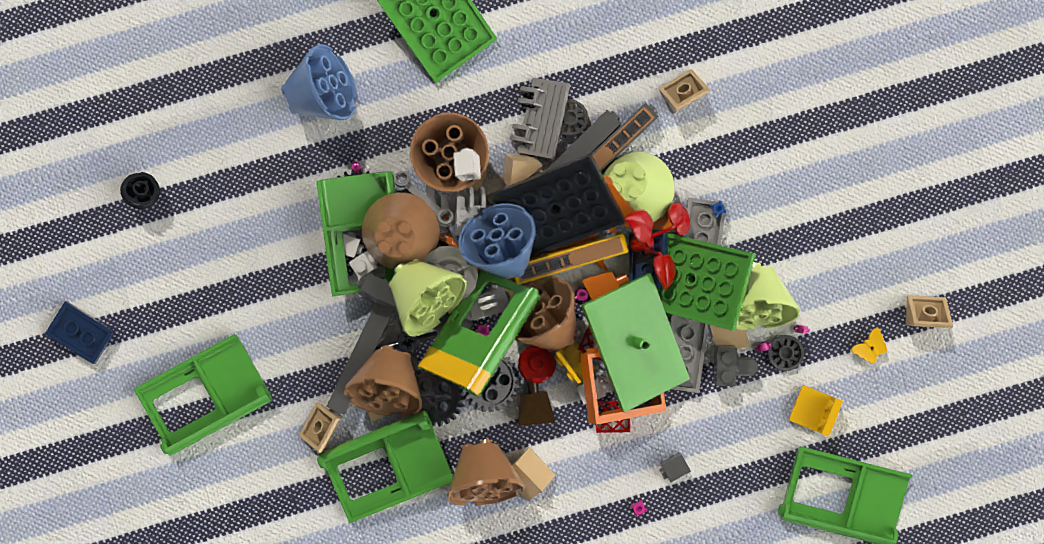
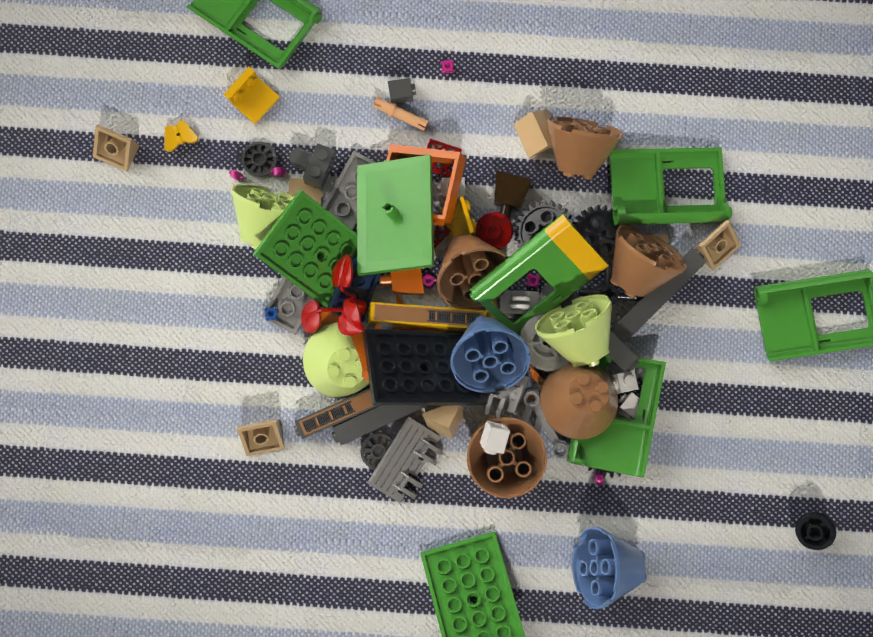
camera: 160 degrees left, 5 degrees down
(667, 445) = (400, 113): none -> light nougat pin

